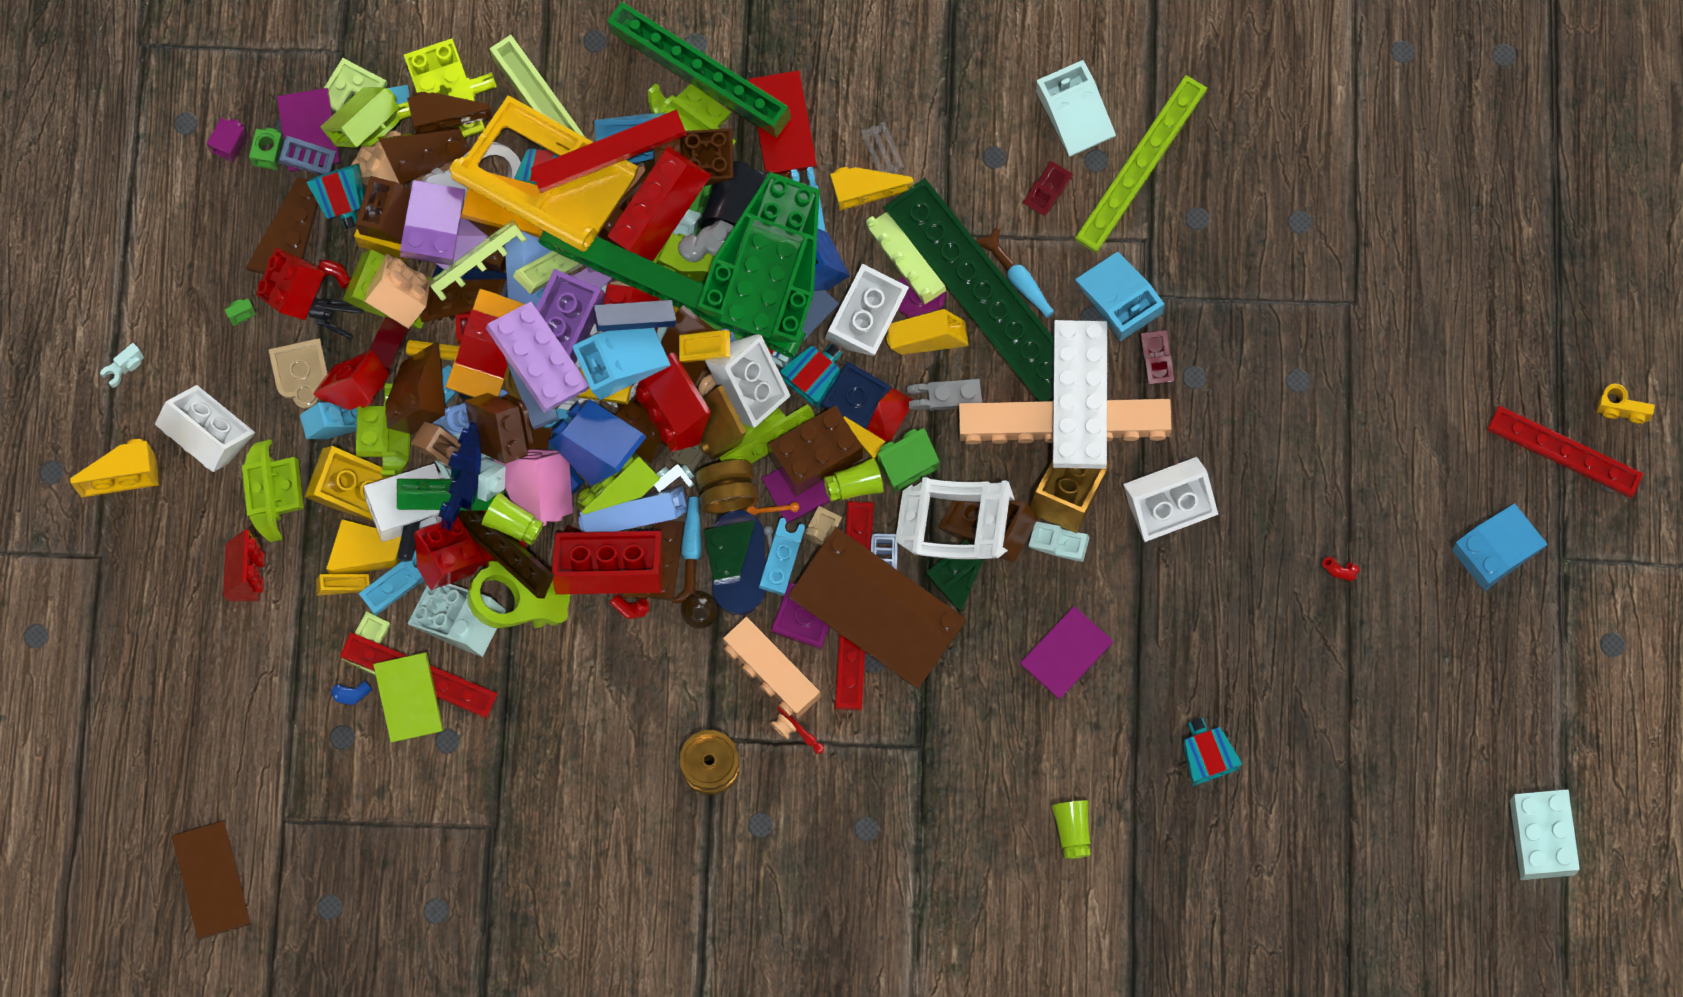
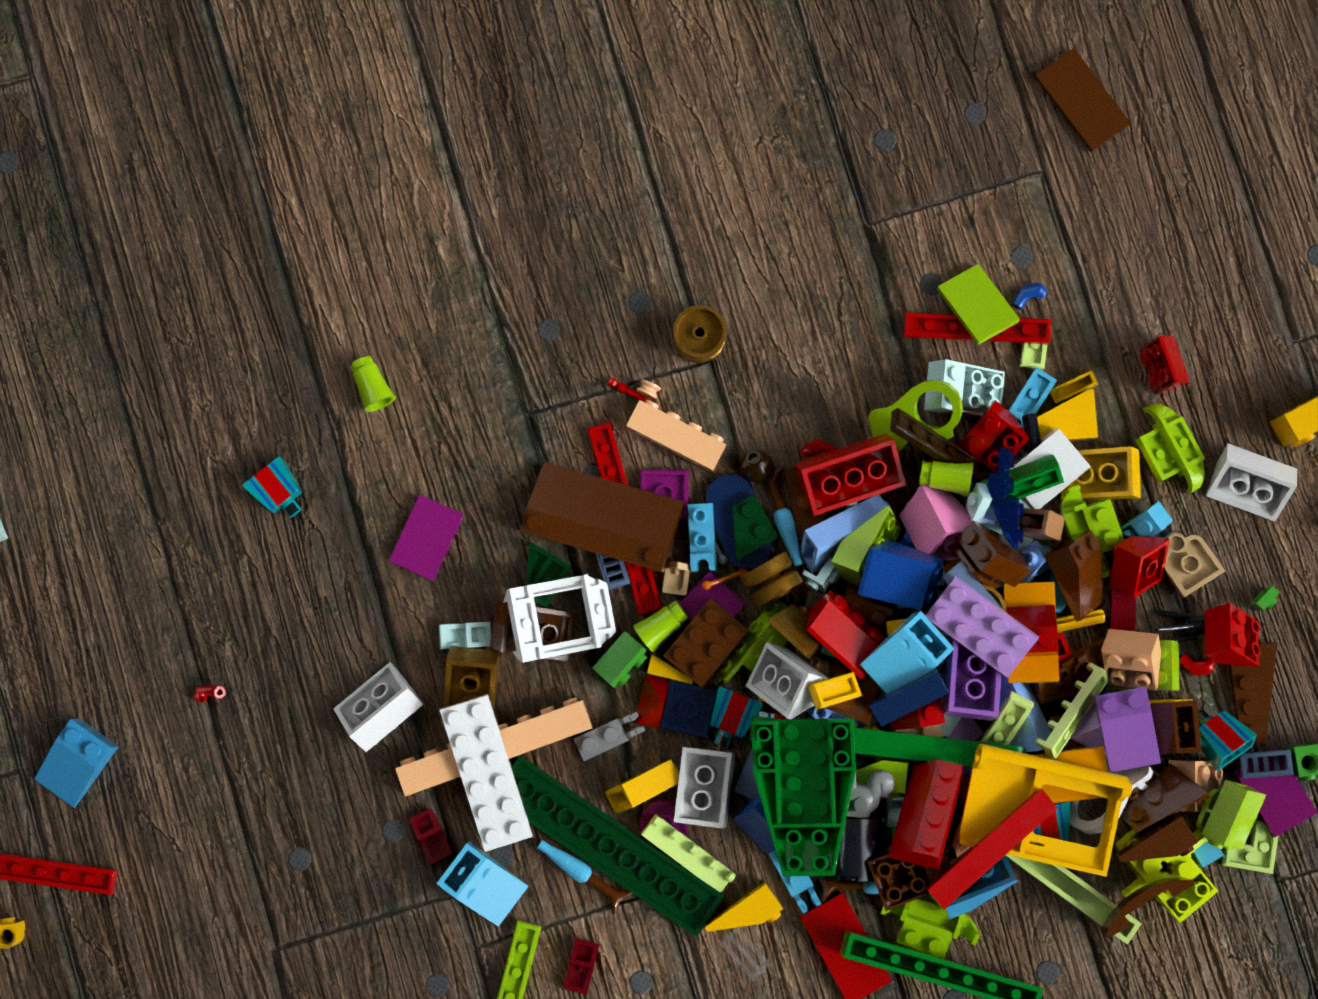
camera: 160 degrees right, 10 degrees up
(483, 69) = (1117, 921): none -> reddish brown slope

